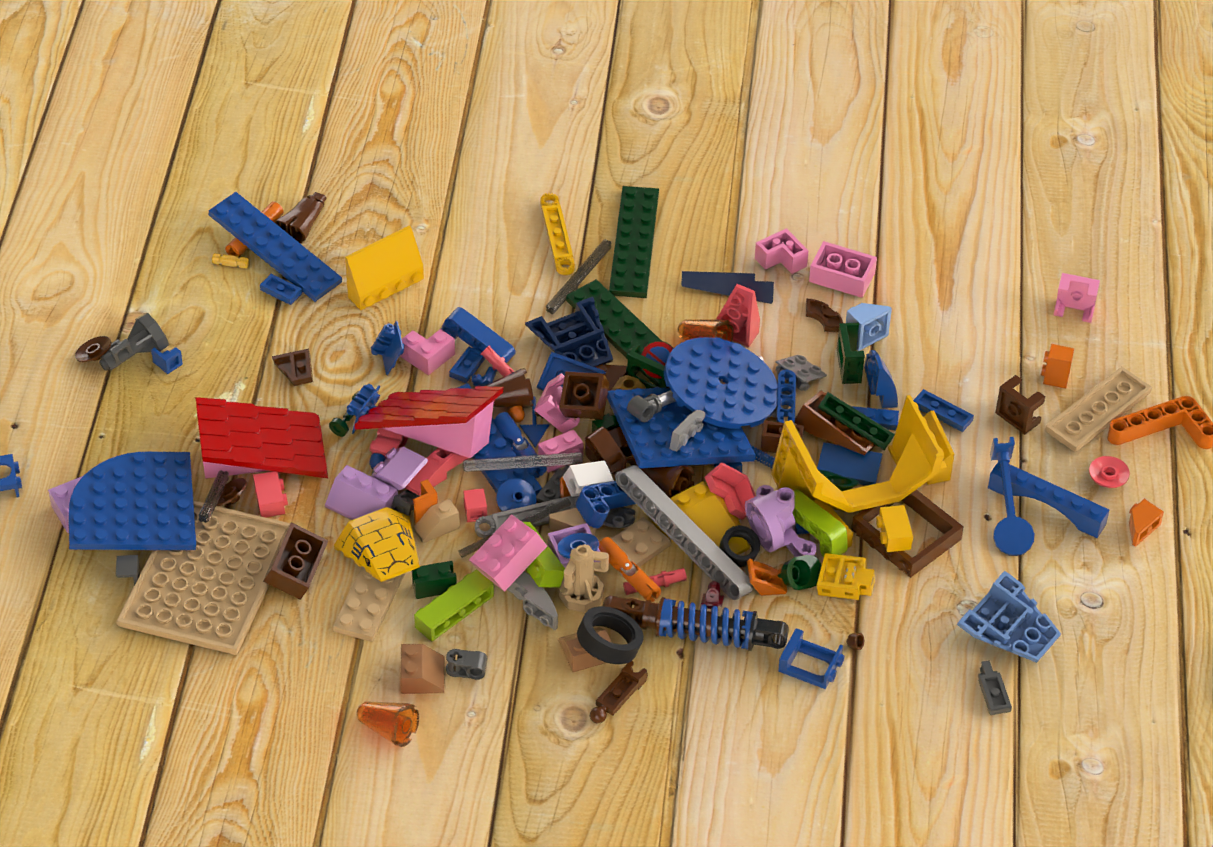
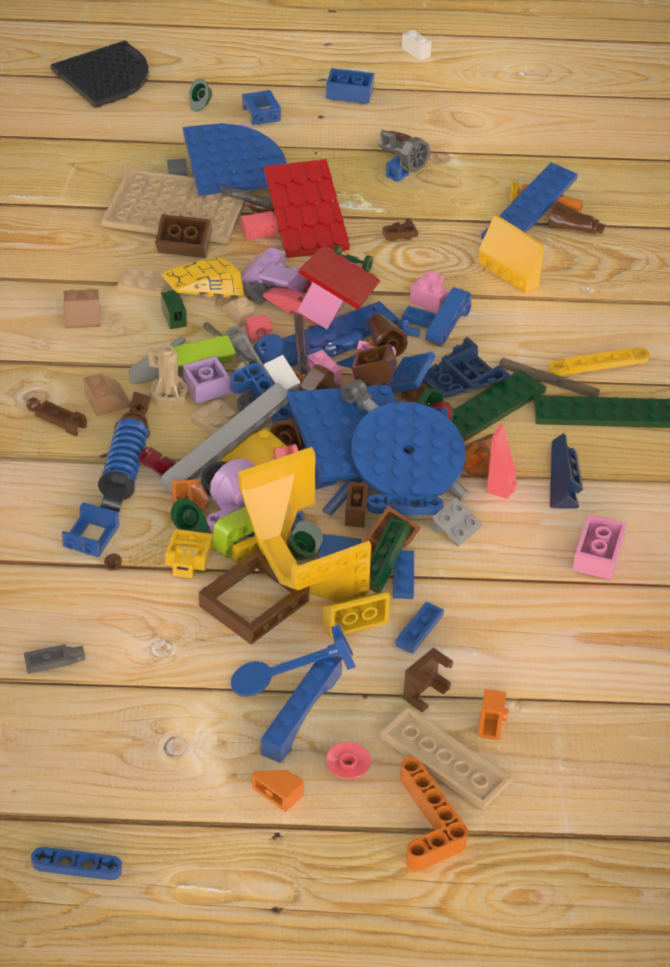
camera: 85 degrees right, 5 degrees down
(281, 289) = (485, 216): blue plate -> none
(363, 402) = (354, 255): blue hinge -> none
(389, 345) = (432, 263): blue hinge -> none
(390, 720) = (25, 294): clear orange cone -> none
(425, 501) = (252, 291): orange panel -> none
(453, 605) = (148, 321): lime brick -> none
(468, 664) = (87, 332): dark grey piece -> none
(497, 362) = (420, 329): coral pin -> none
(508, 552) = (184, 328): bright pink brick -> none
(574, 540) = (193, 365): blue dish -> none
(606, 650) = (109, 375): black tyre -> none
(619, 560) = (181, 408): orange piece -> none
(662, 579) = (182, 437): coral pin -> none
(686, 429) = (332, 419): light grey hinge -> none
(781, 248) = (613, 500): bright pink brick -> none
(824, 314) = (540, 543): reddish brown tile -> none
(850, 361) = (459, 555): dark green panel -> none
(873, 323) = (517, 560): light blue slope -> none
(880, 380) = (446, 567): blue brick -> none
(895, 528) = (235, 572): yellow brick -> none
(1011, 620) = (127, 664): medium blue wedge -> none
(1077, 293) = (606, 735): bright pink panel -> none

